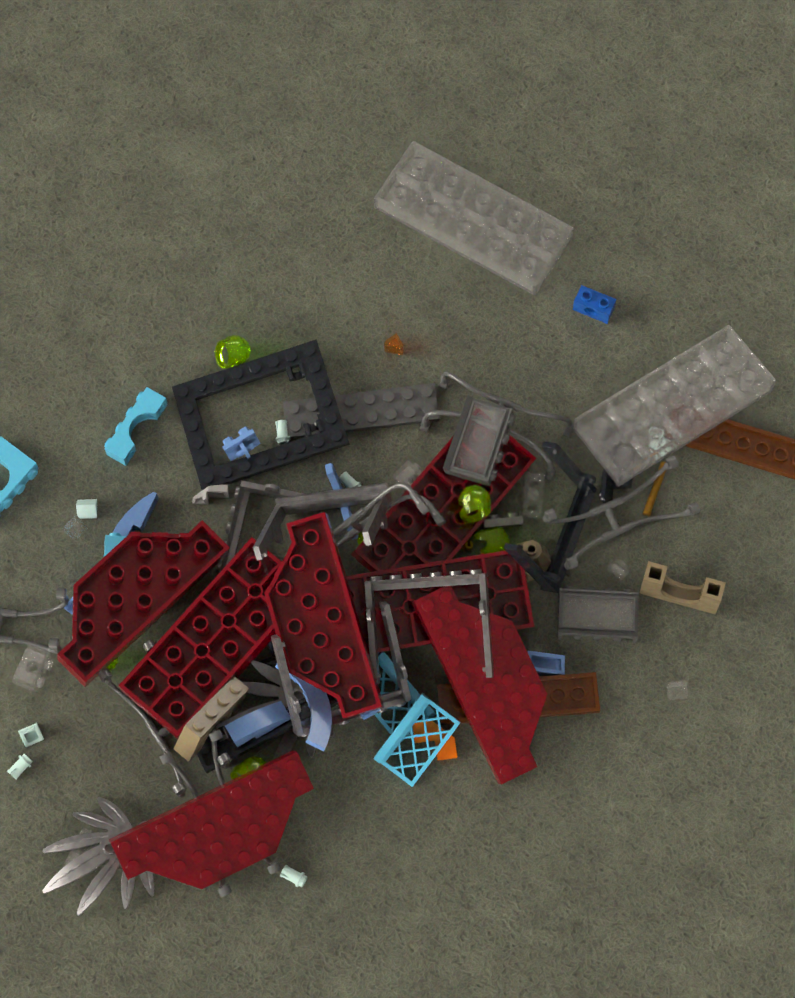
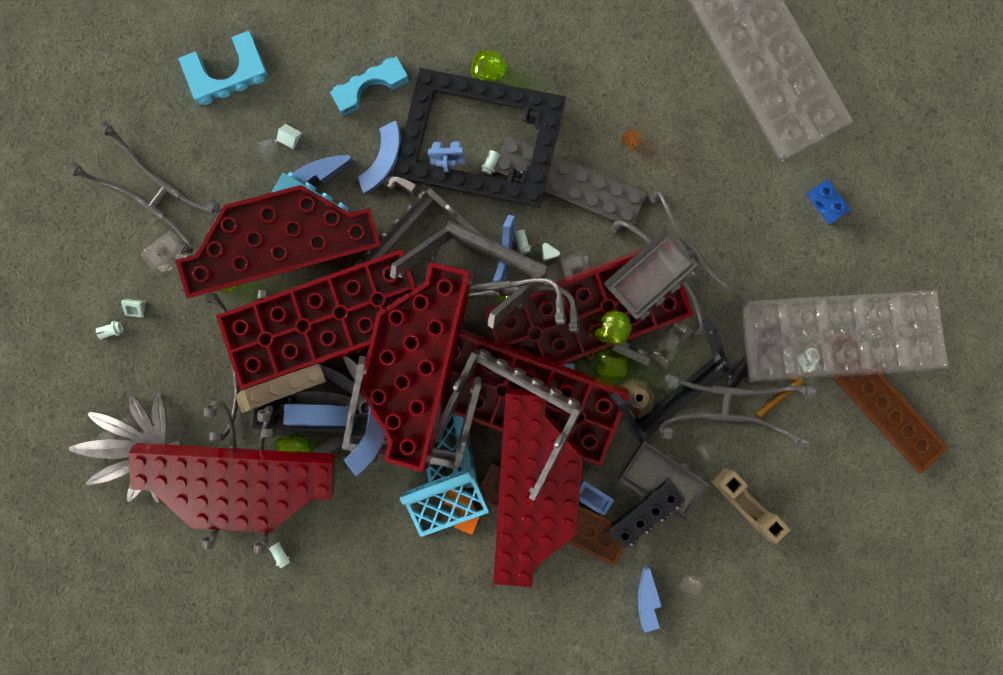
camera: 30 degrees right, 15 degrees up
(187, 480) = (385, 160): none -> medium blue tile
(380, 476) = (549, 252): none -> light aqua slope
(597, 644) = (646, 513): none -> black brick
(647, 724) = (648, 601): none -> medium blue slope

